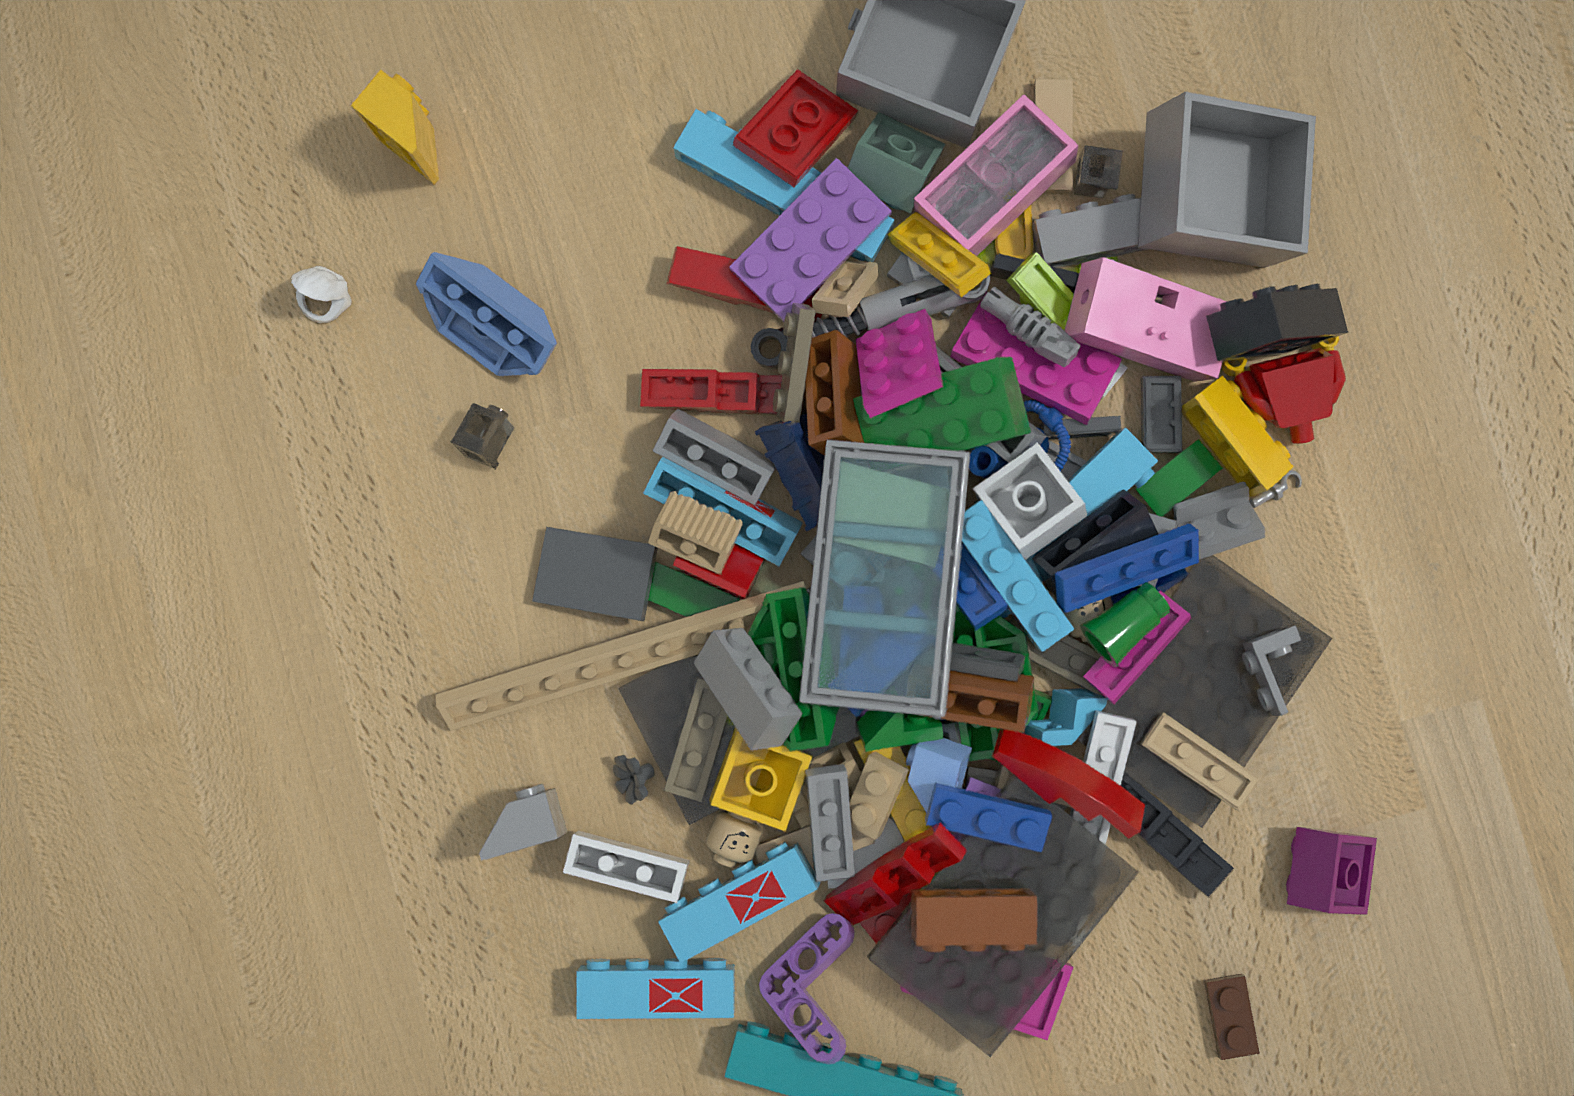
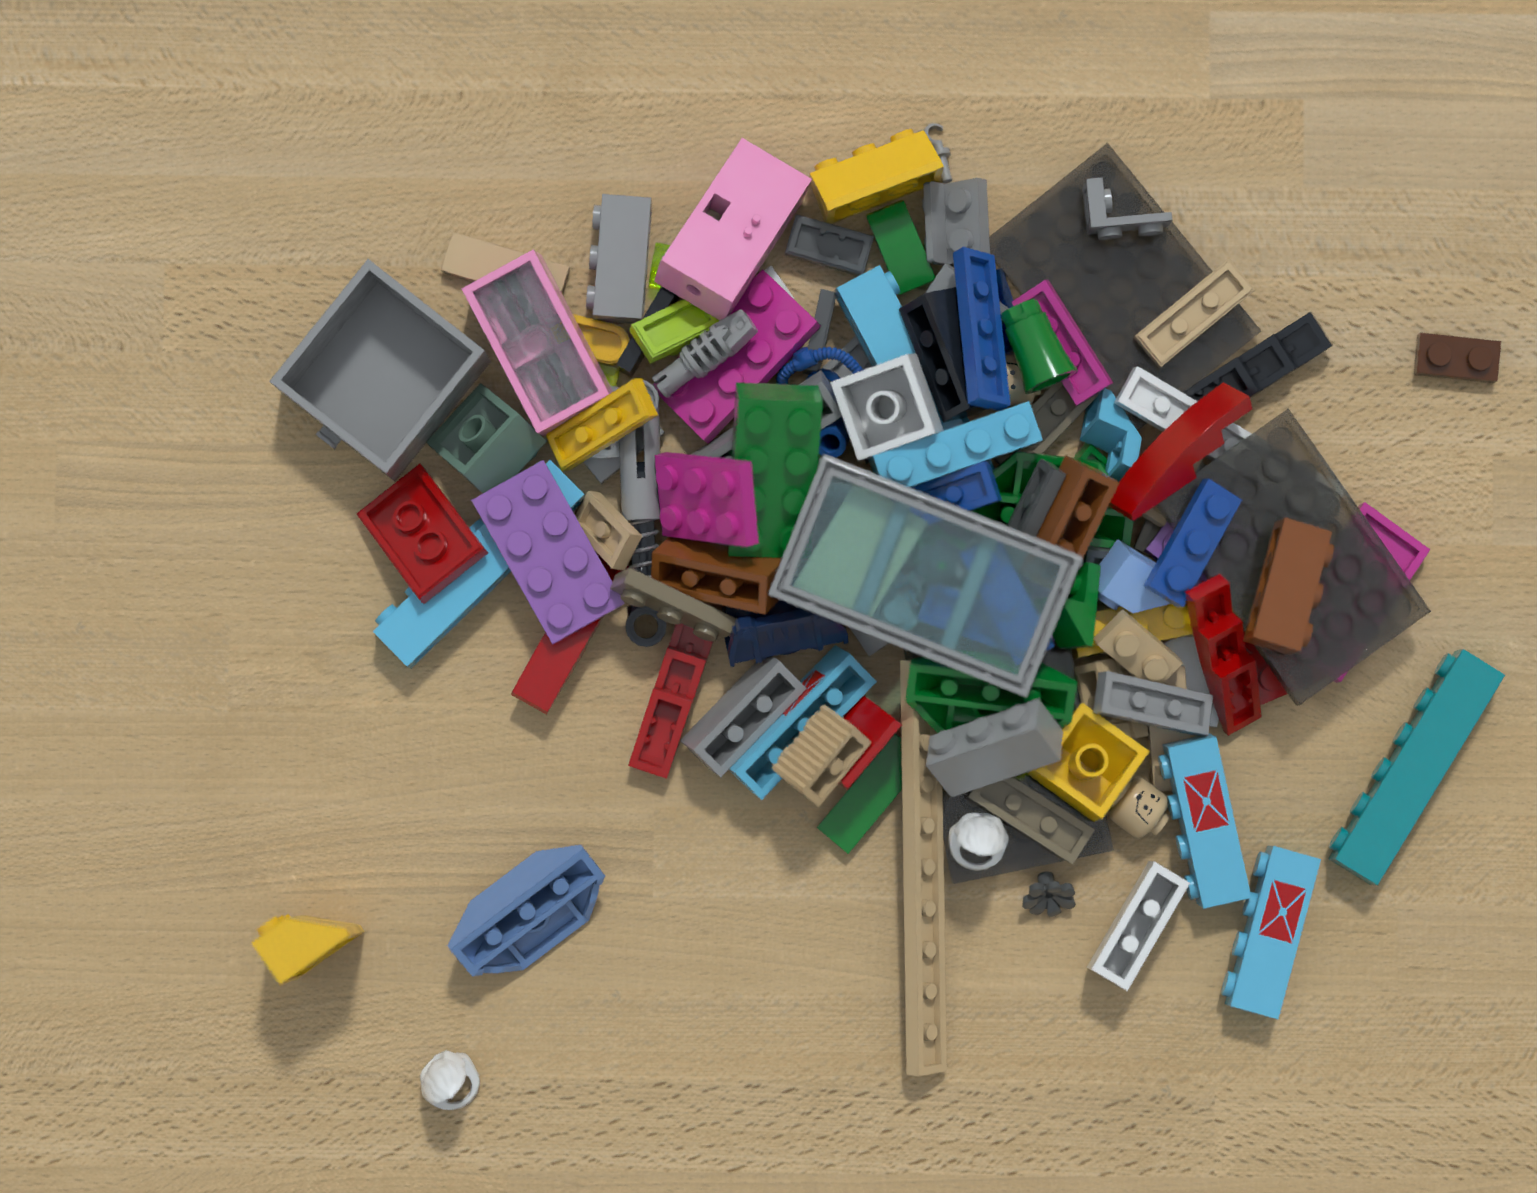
camera: 80 degrees left, 0 degrees up
(483, 434) = (635, 953): clear smoke brick -> none
(526, 822) = (1066, 1014): light grey slope -> none
(595, 573) = (827, 875): dark grey tile -> none
(664, 699) = (981, 835): none -> white piece
(795, 990) = (1311, 789): medium lavender beam -> none
(1097, 171) = (560, 236): clear smoke brick -> none
(1227, 180) = (613, 110): light grey container -> none
(1276, 321) = (773, 104): black brick -> none
(1293, 388) = (842, 103): red torso -> none
(1331, 871) = (1340, 215): magenta slope -> none

